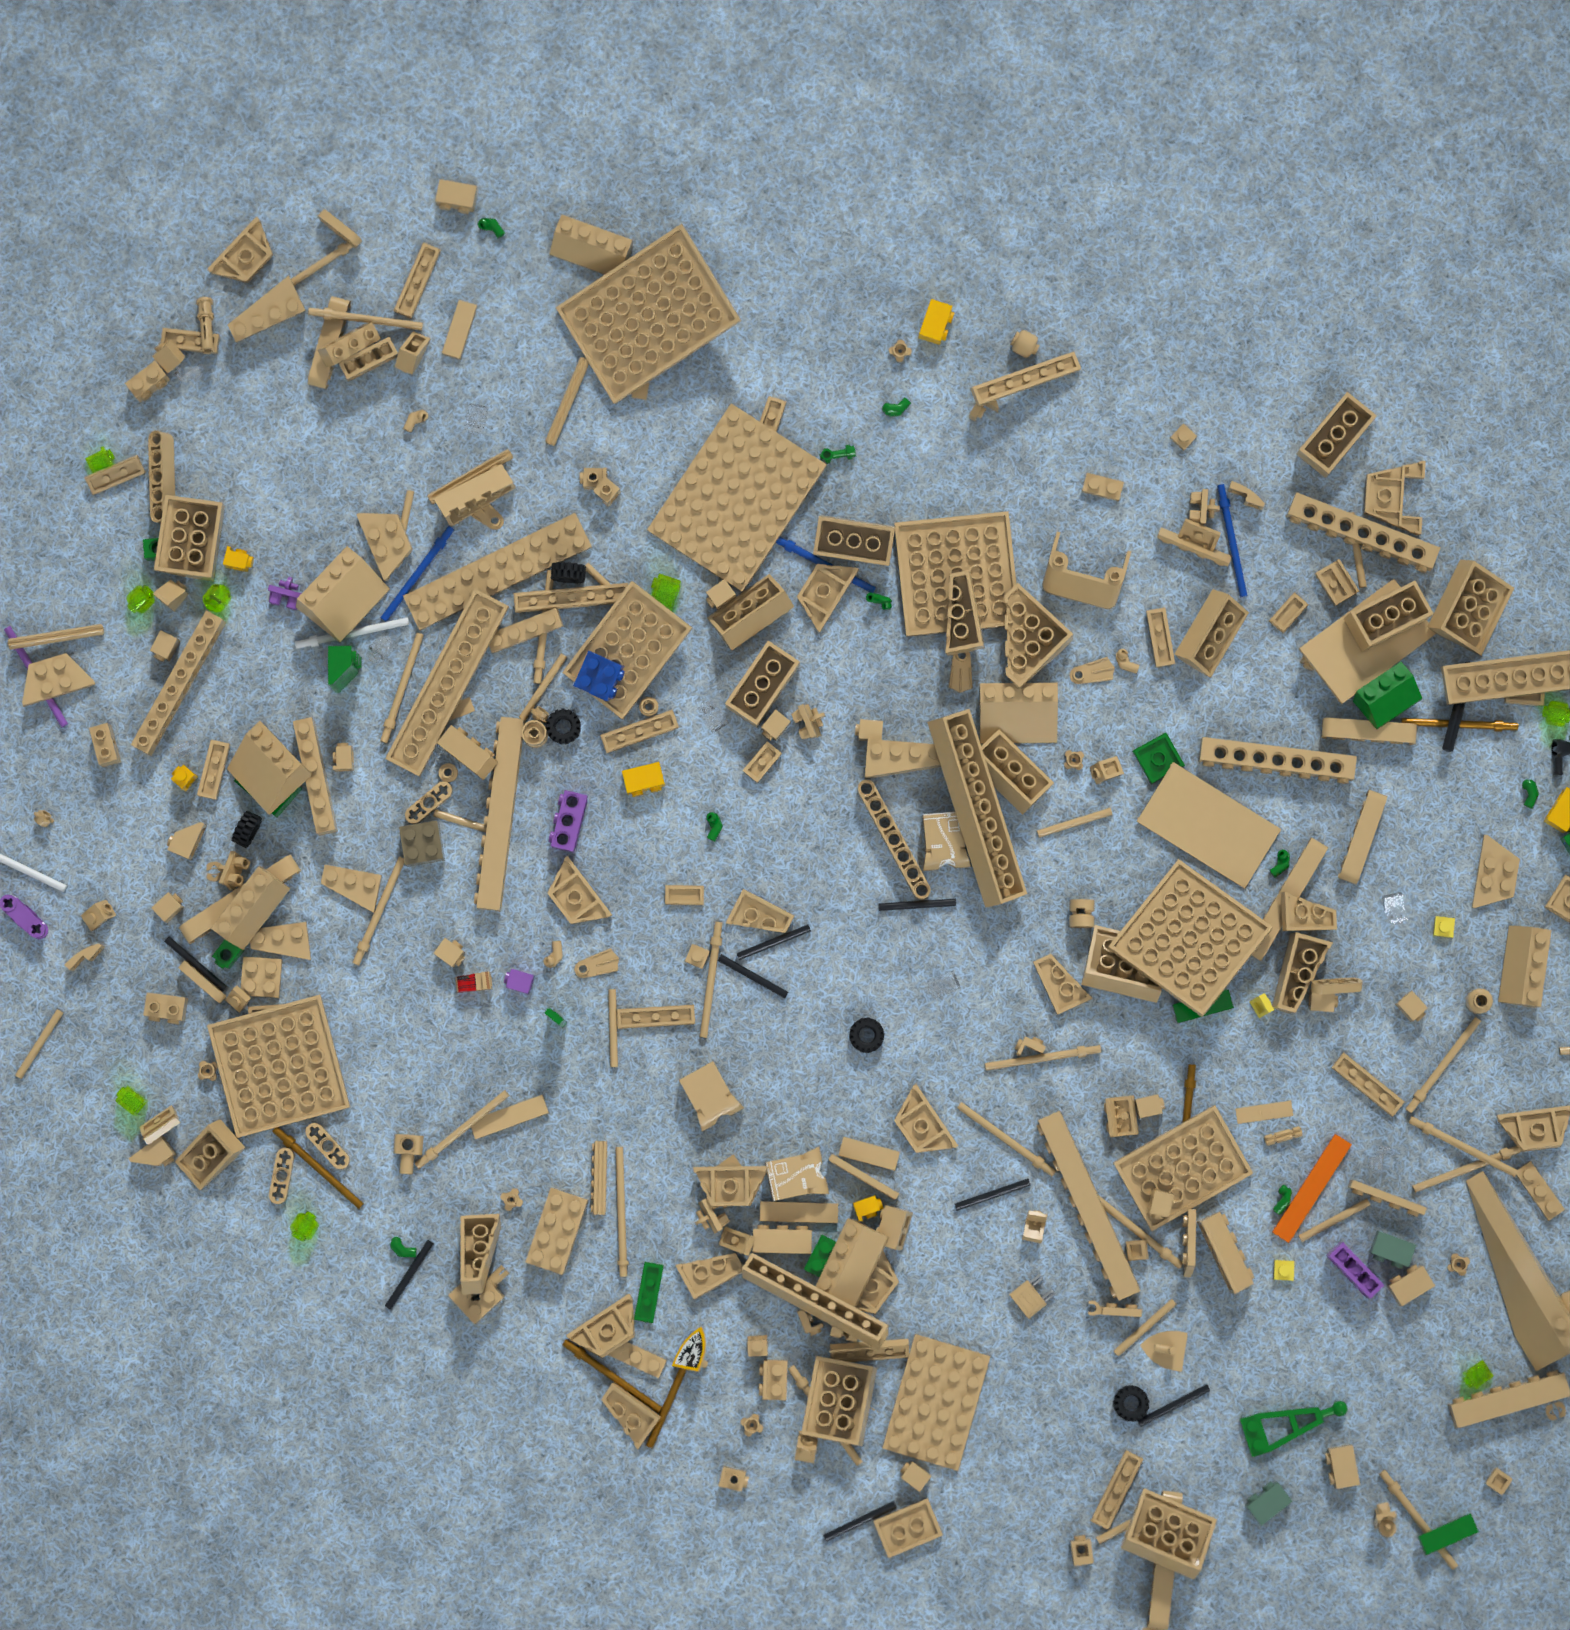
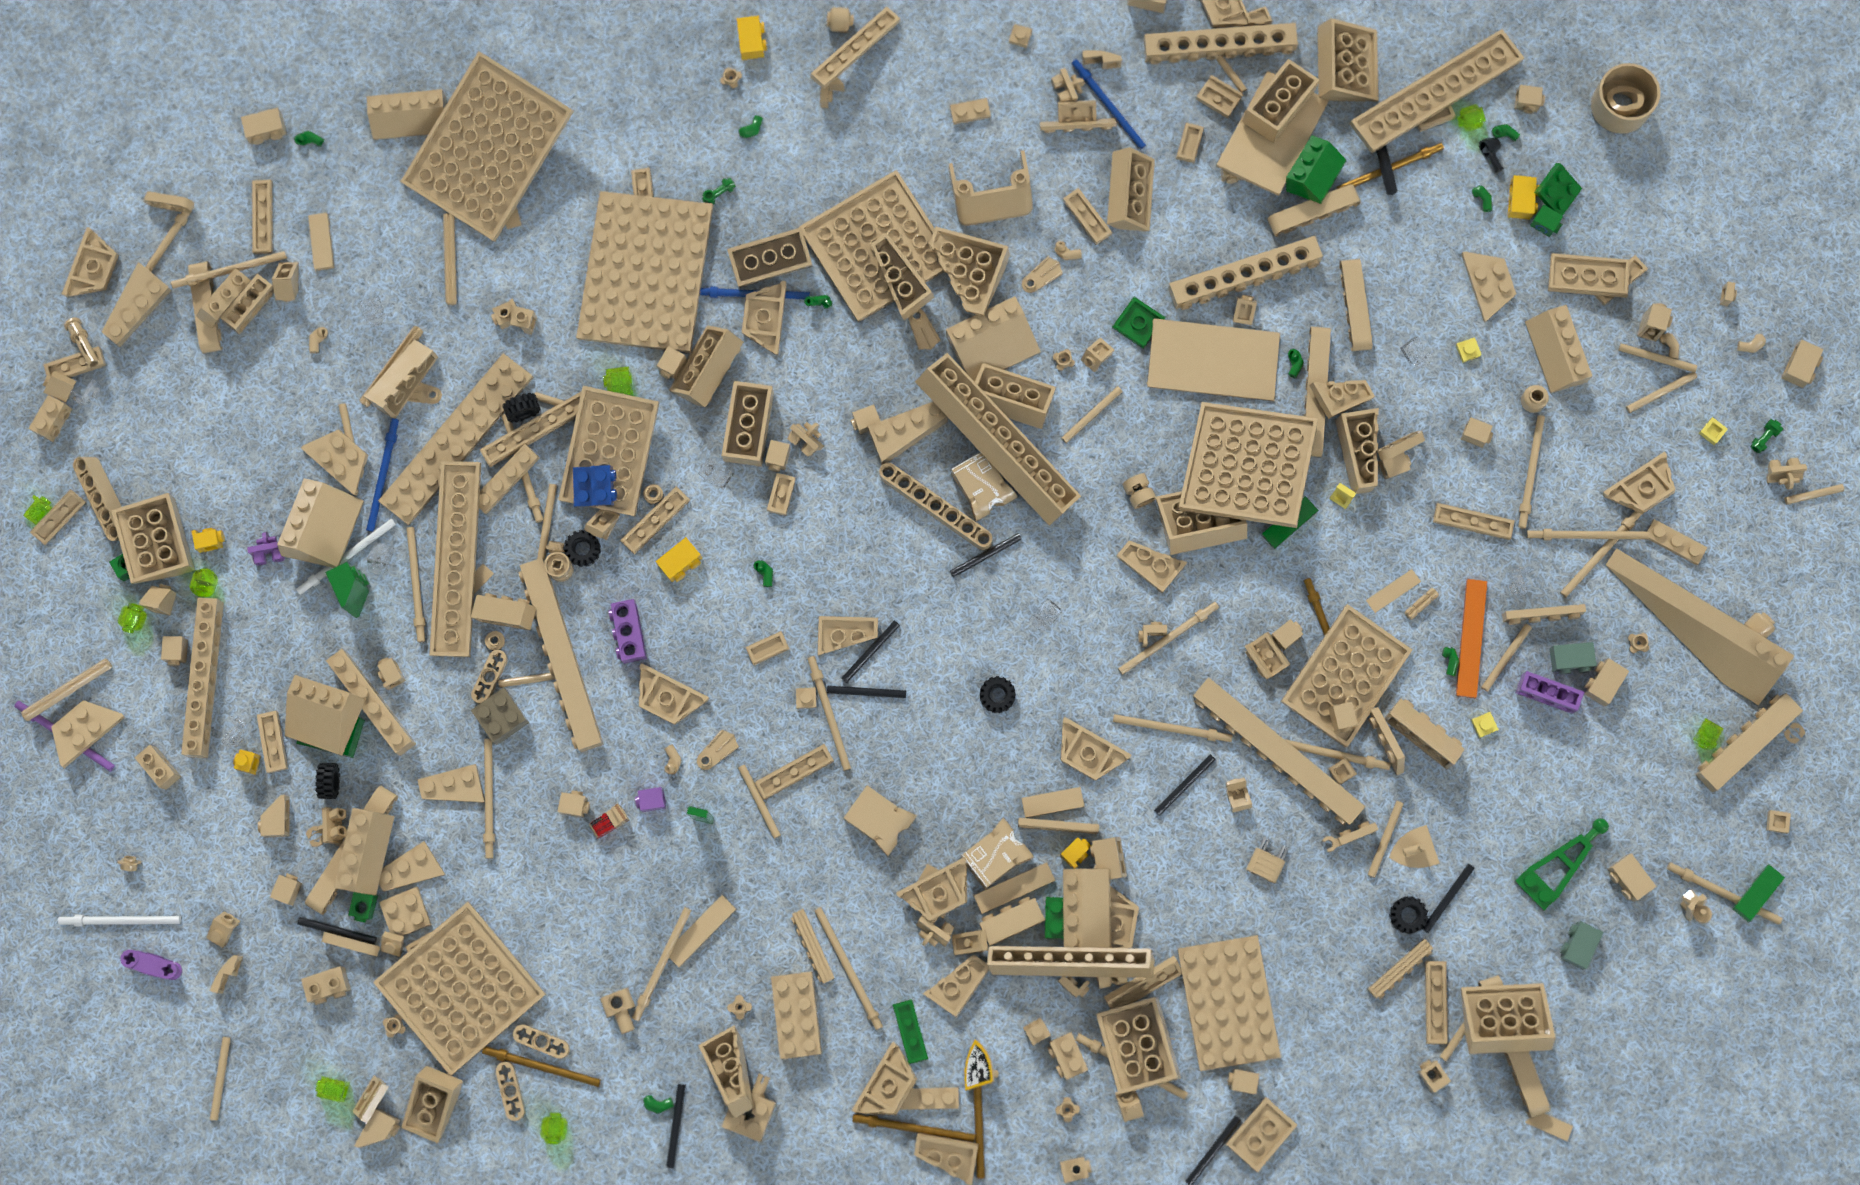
camera: 25 degrees left, 5 degrees down
(590, 713) = (602, 523): none -> tan slope
(1101, 1445) = (1403, 966): none -> tan piece
(1260, 793) = (1245, 310): none -> tan bracket

